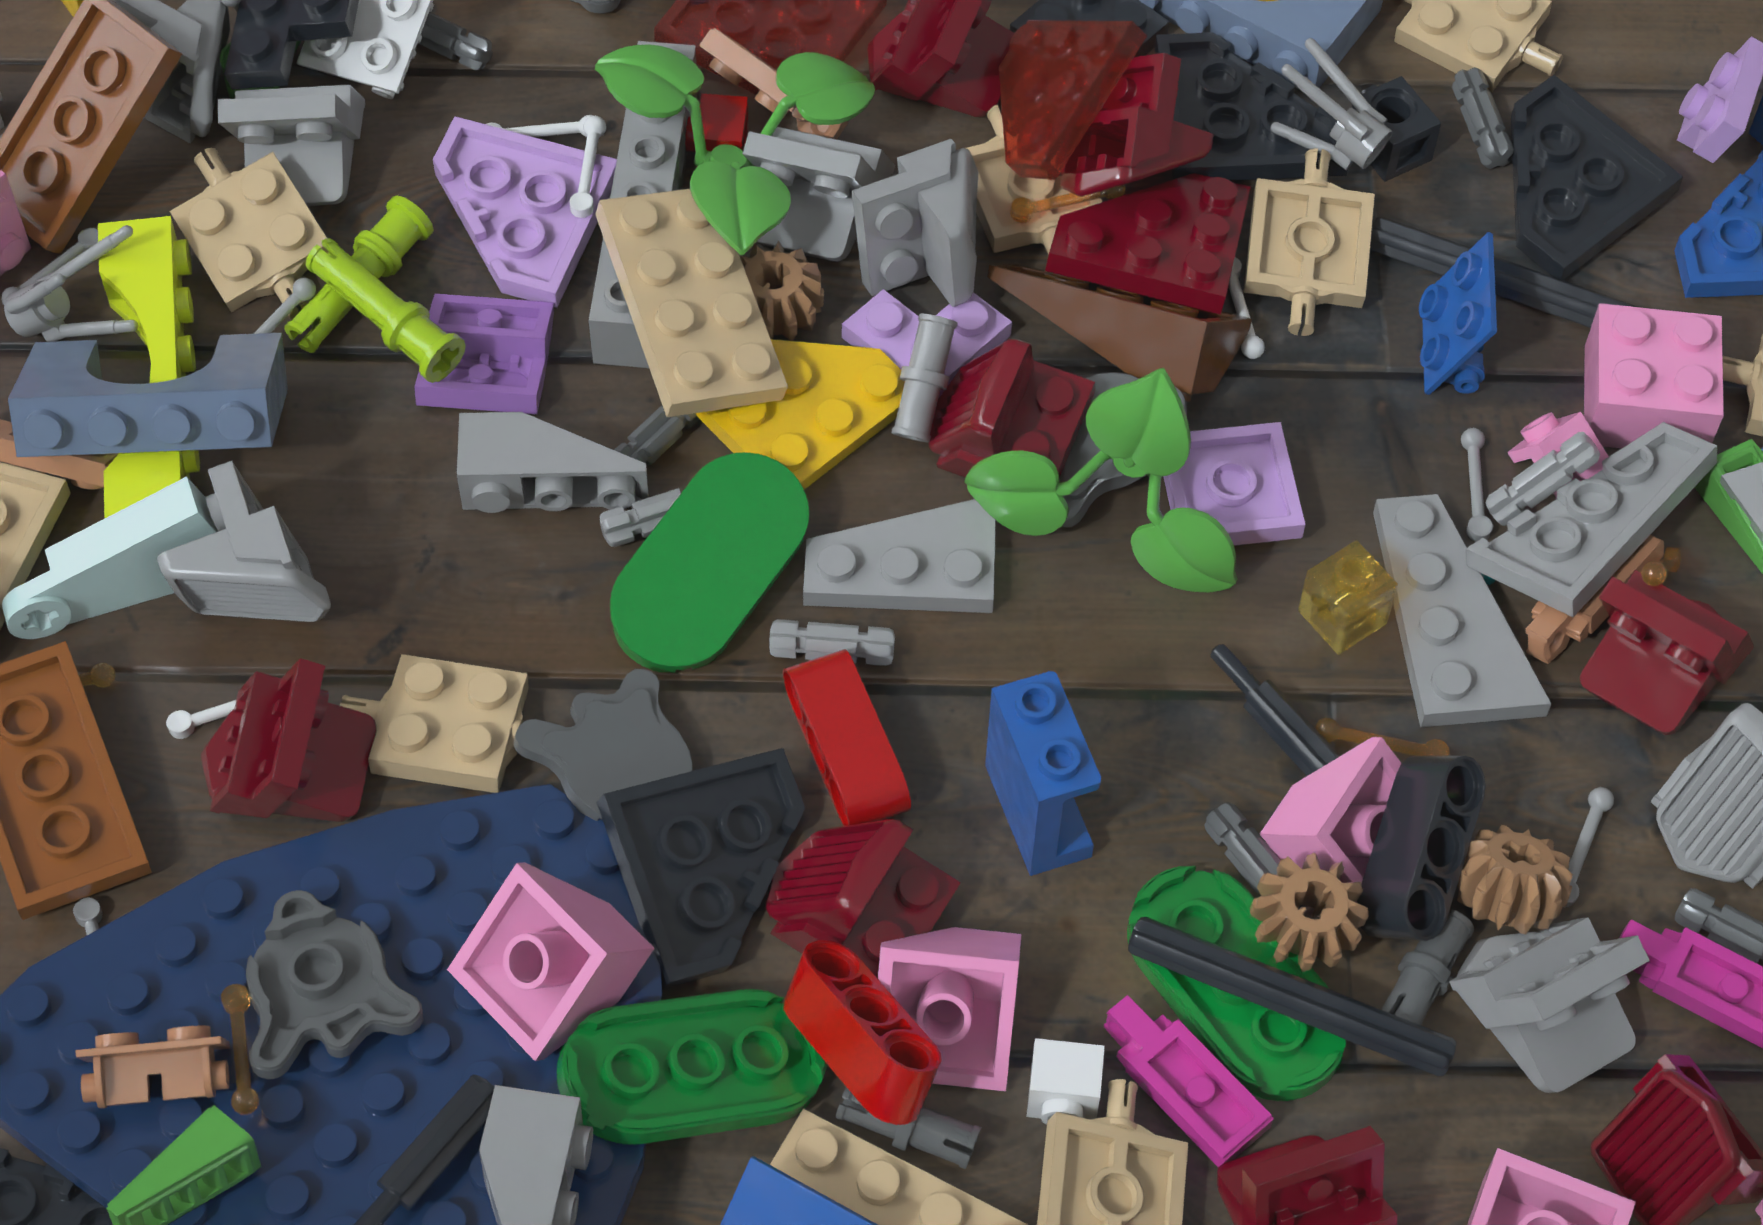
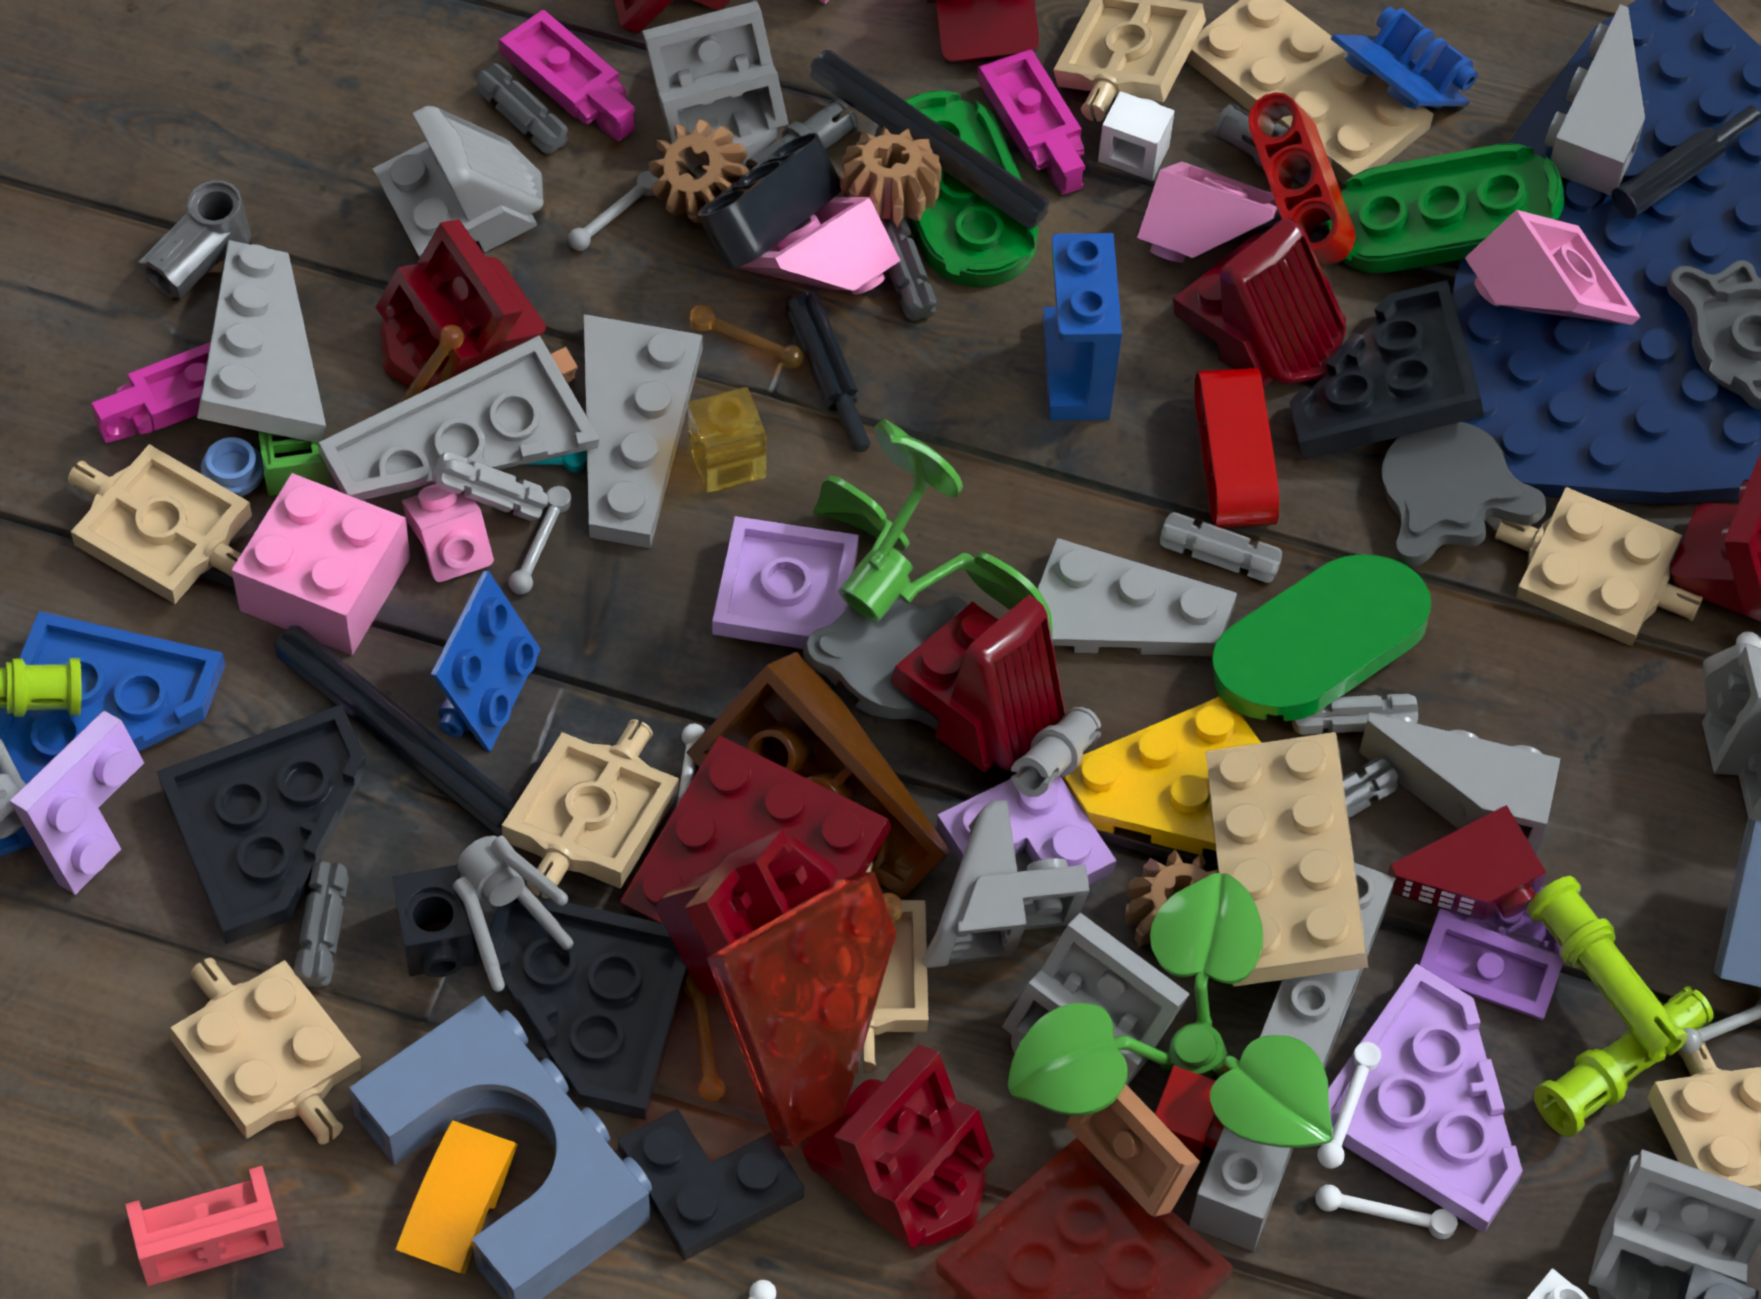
camera: 165 degrees left, 0 degrees up
(523, 358) = (1474, 869): none -> dark red slope

